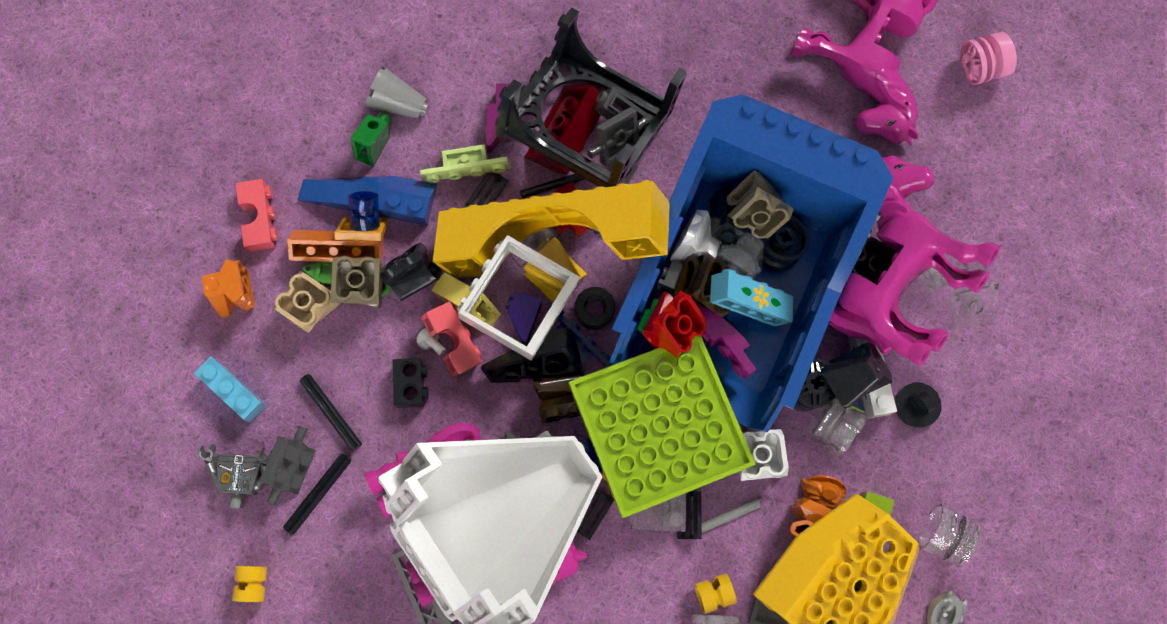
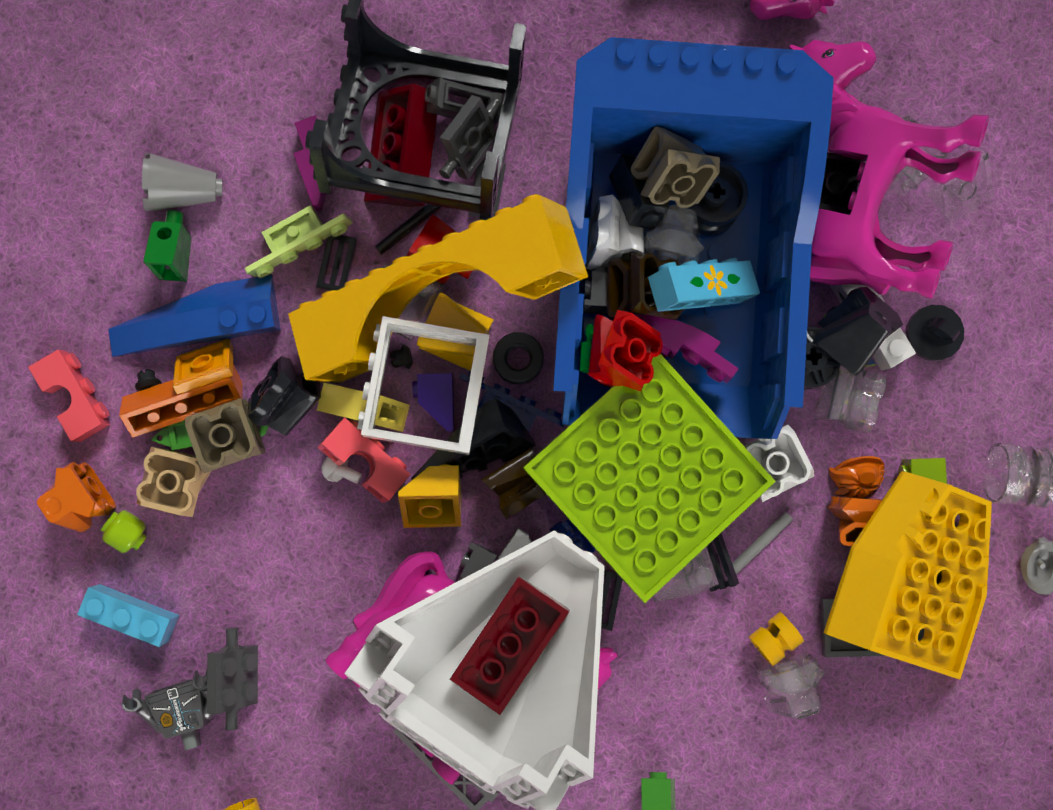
camera: 20 degrees left, 10 degrees up
(253, 327) = (123, 531): none -> lime head
(316, 224) = (146, 380): none -> black piece
(317, 494) = (279, 694): black axle -> none
(330, 412) = (256, 595): black axle -> none
(364, 211) = (198, 347): clear blue wheel -> none
(402, 383) = (327, 532): black brick -> none
(491, 385) = (432, 498): none -> yellow slope
(508, 276) = (402, 356): none -> black piece
(508, 510) = (509, 645): none -> dark red slope

